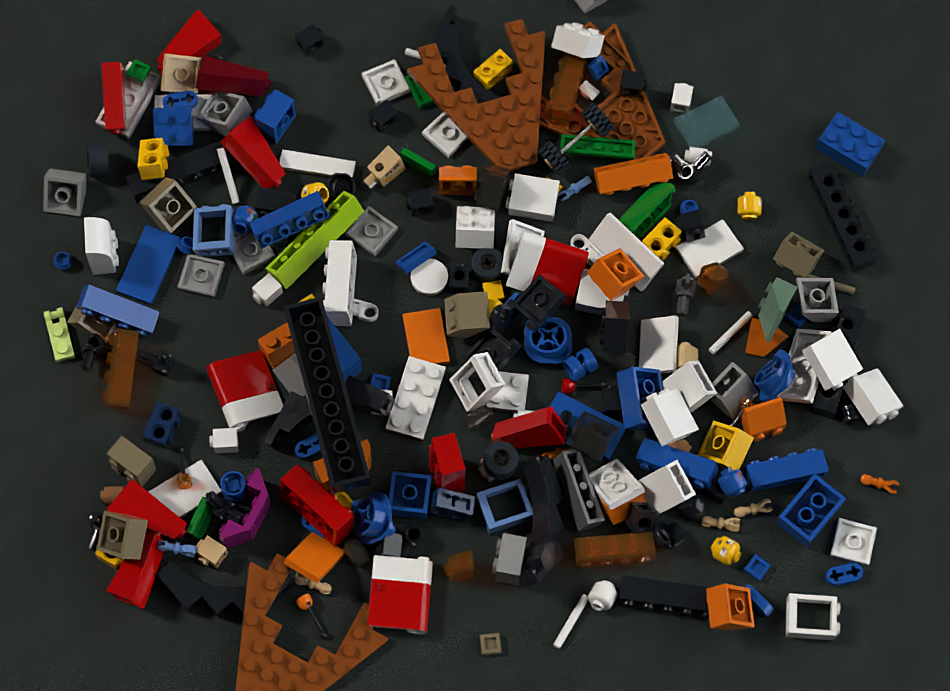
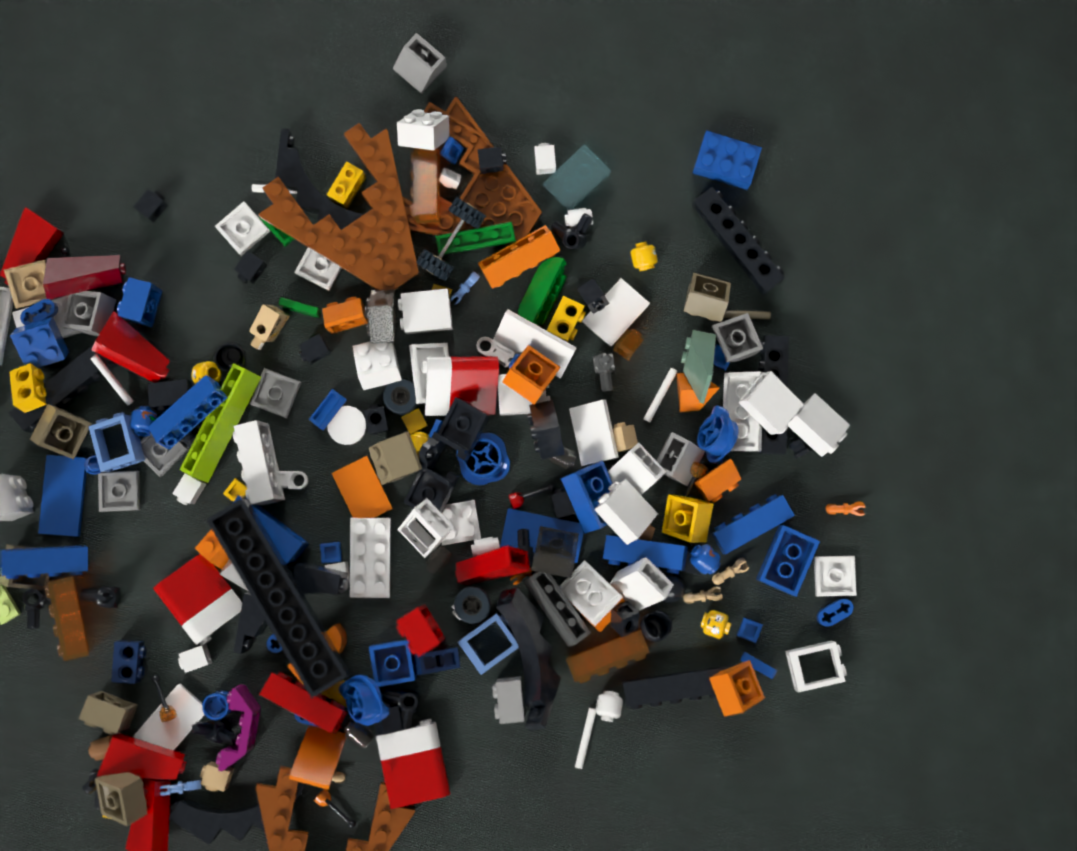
camera: 15 degrees left, 15 degrees up
(200, 520) = (195, 749): green tile -> none
(315, 164) = (198, 338): white tile -> none
(460, 566) = (463, 720): clear orange slope -> none
(490, 644) = (514, 784): dark tan tile -> none
(581, 364) = (522, 483): blue wheel -> none
(688, 205) = (584, 274): blue plate -> none

